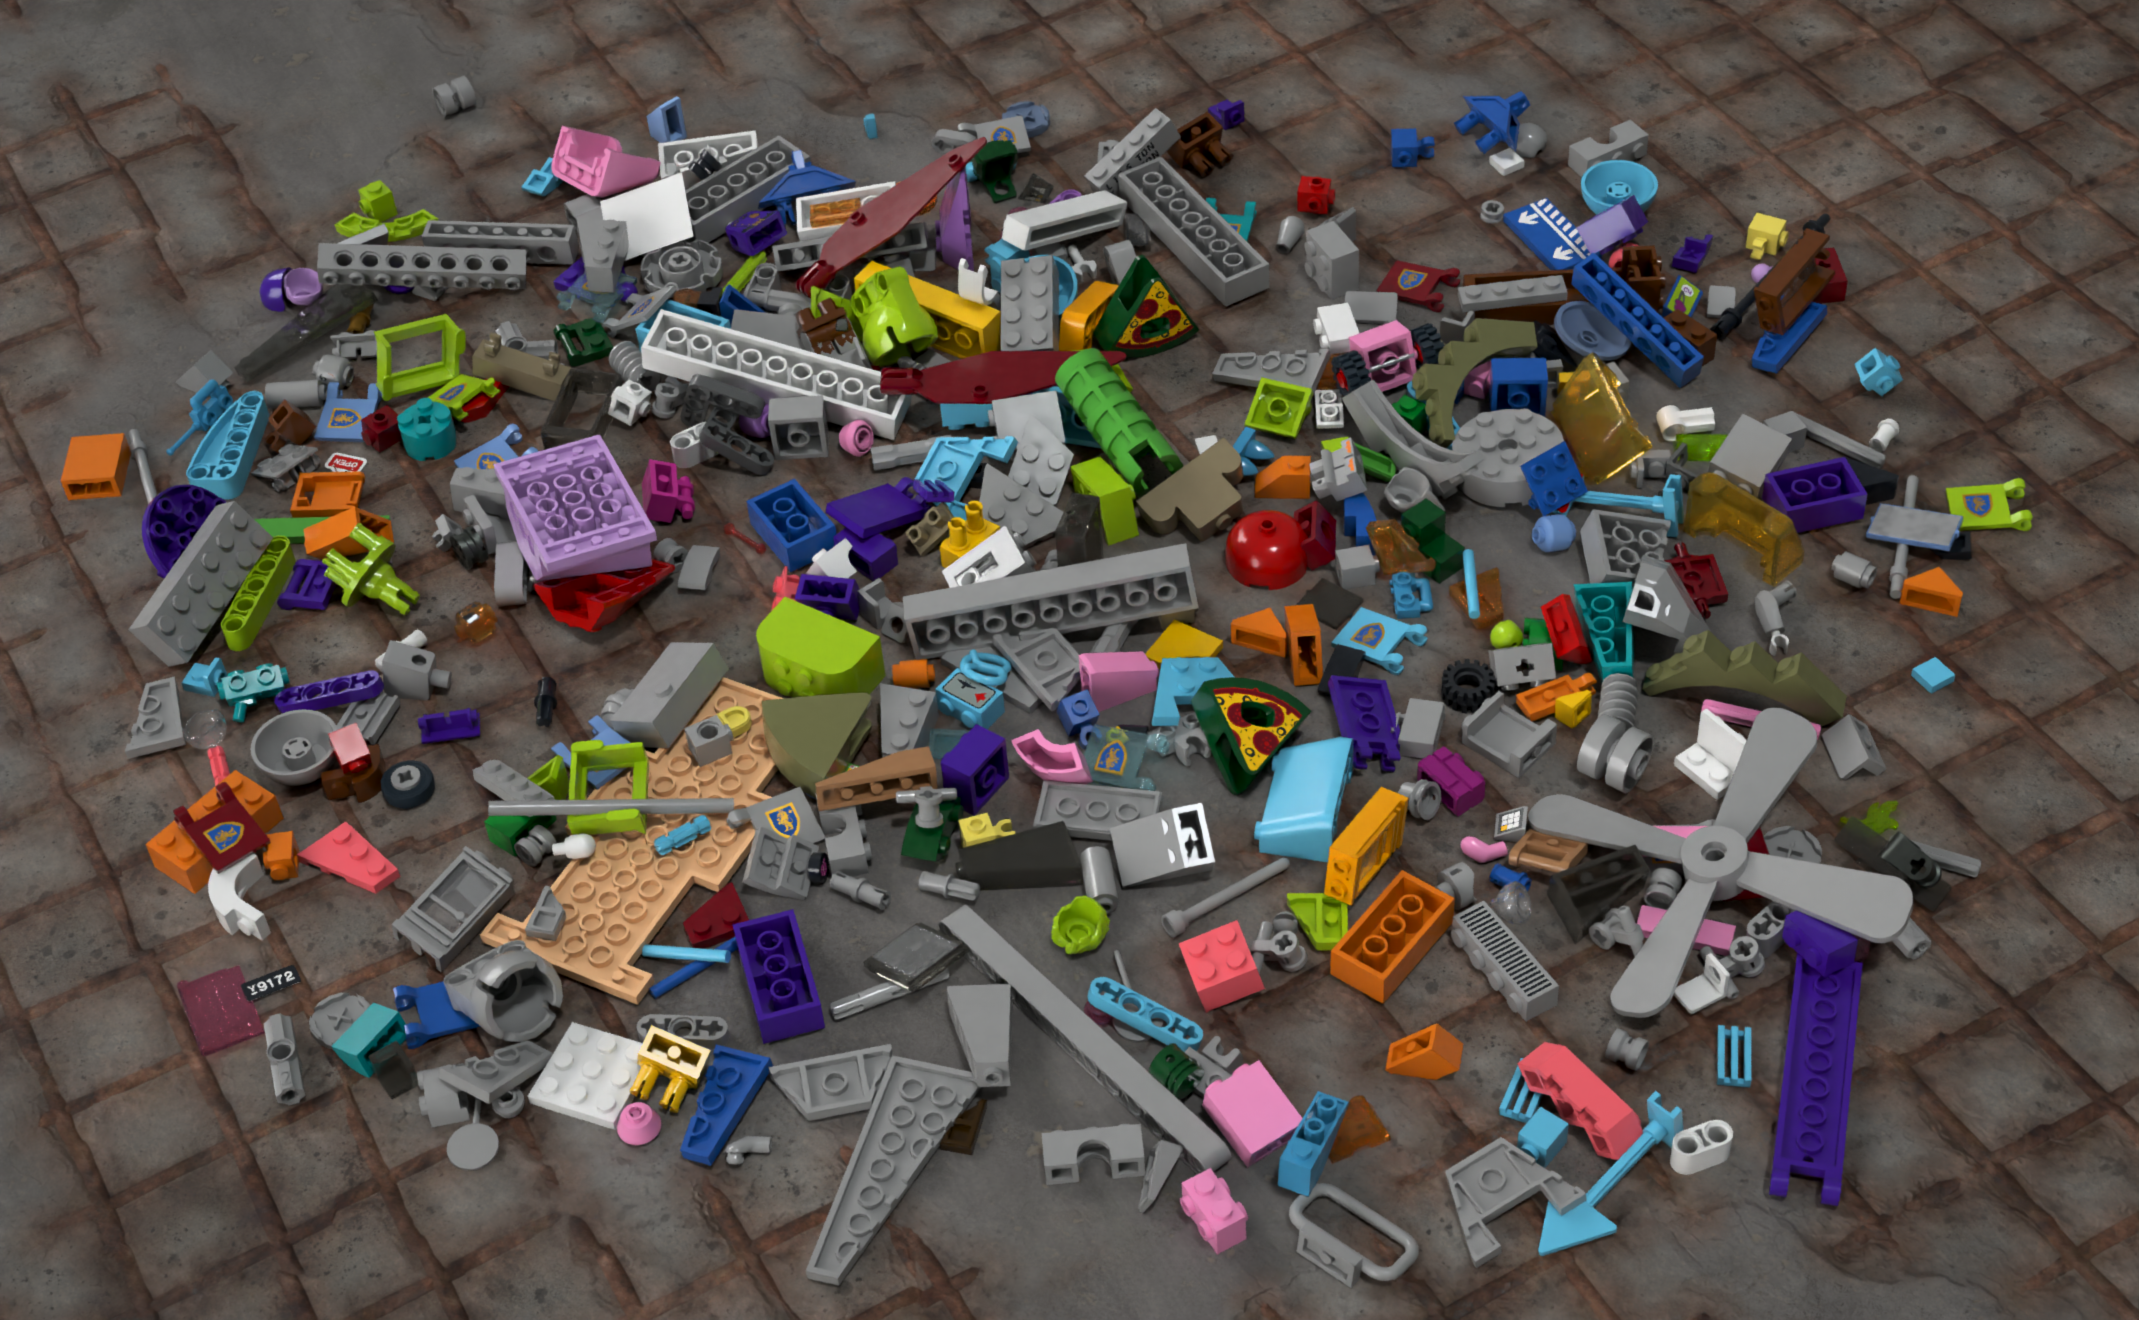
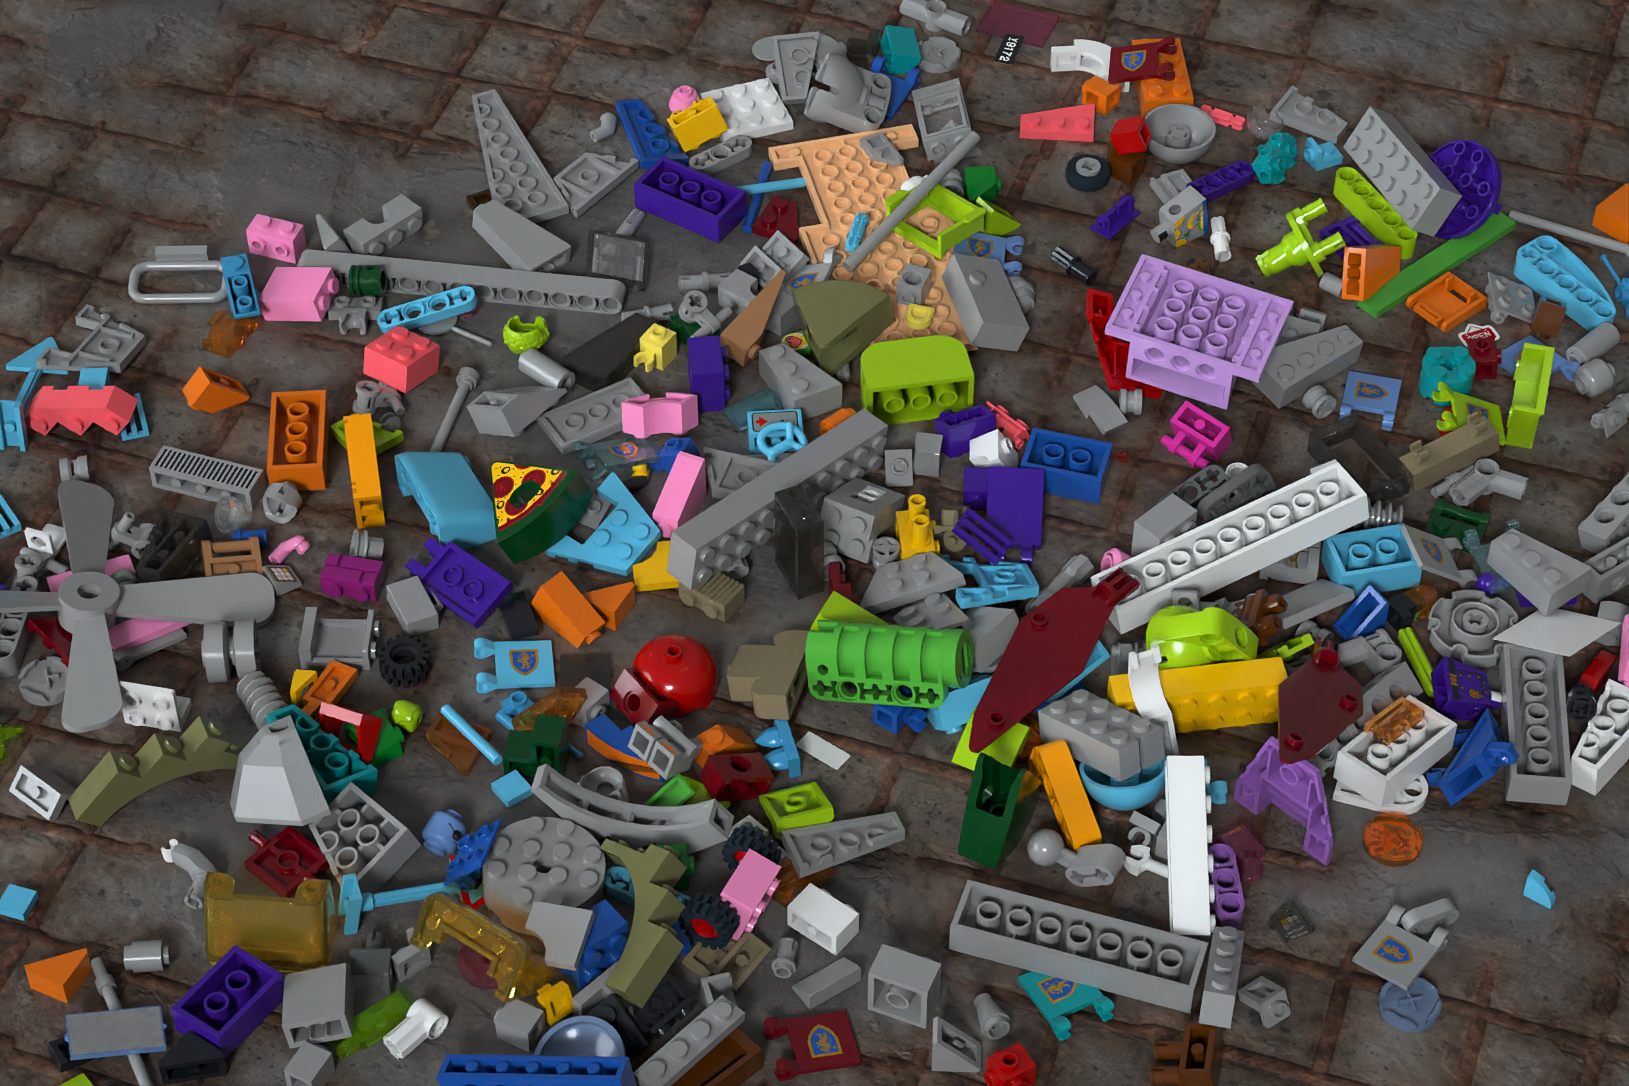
camera: 135 degrees right, 0 degrees up
(508, 783) = (1005, 194): light grey plate -> none
(994, 164) = (1349, 898): dark green piece -> none
(1303, 439) = (736, 776): none -> dark red brick
(1472, 541) = (511, 788): none -> medium azure tile
(1539, 661) = (372, 687): light grey brick -> none
(1546, 369) = (562, 931): none -> light grey tile

